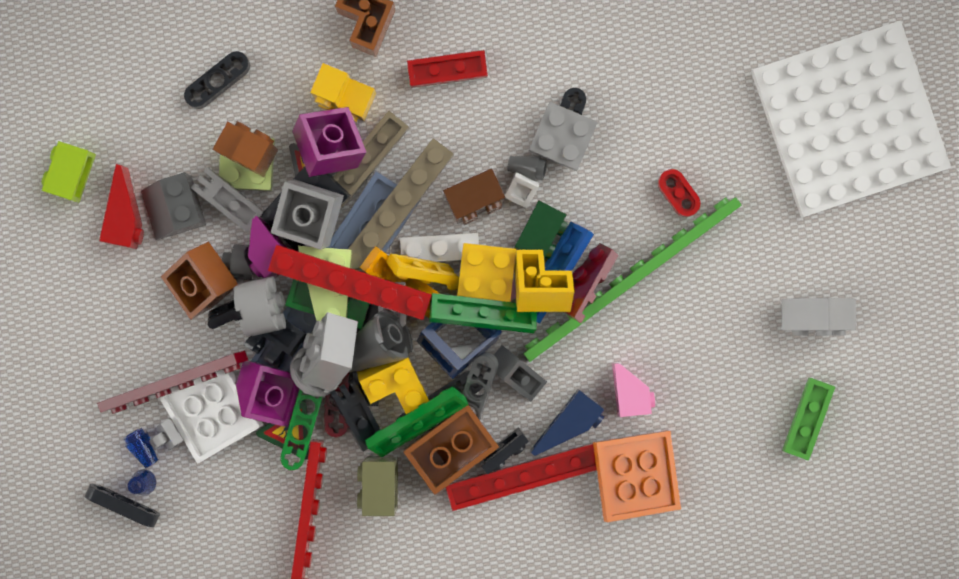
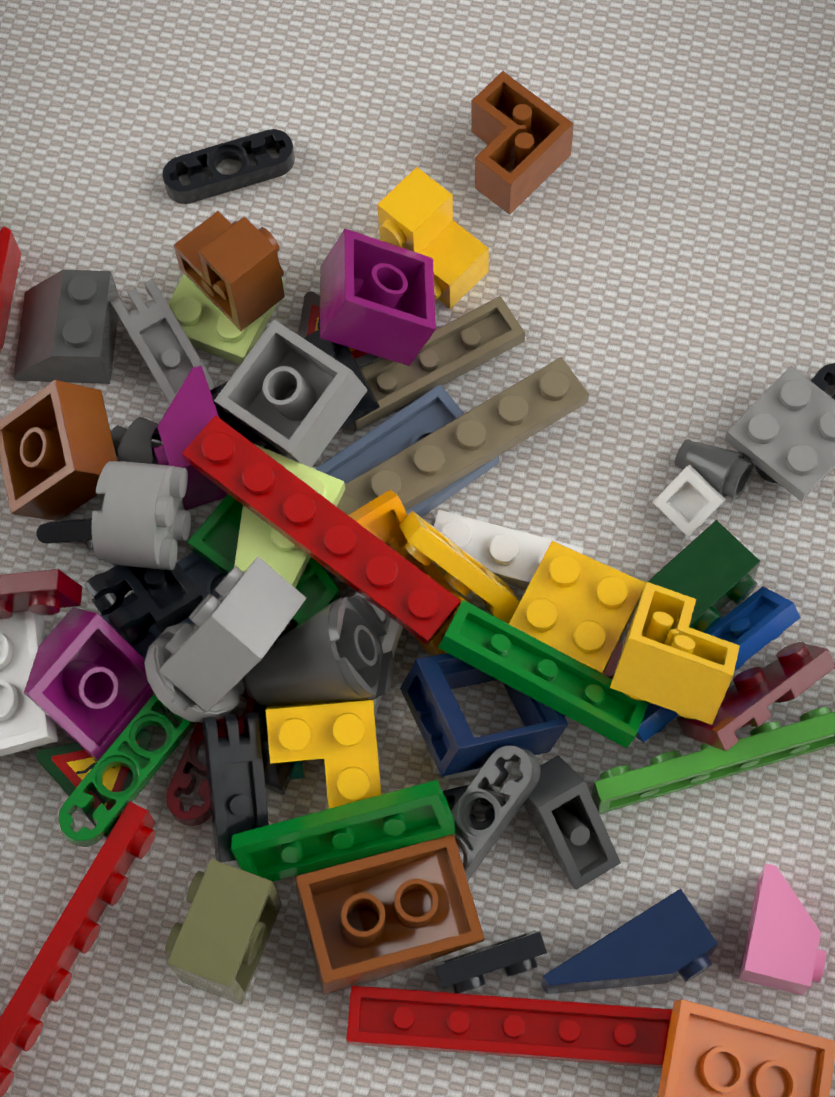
camera: 25 degrees right, 20 degrees down
(447, 68) = (626, 267): red plate -> none
(475, 196) = (600, 475): reddish brown brick -> none

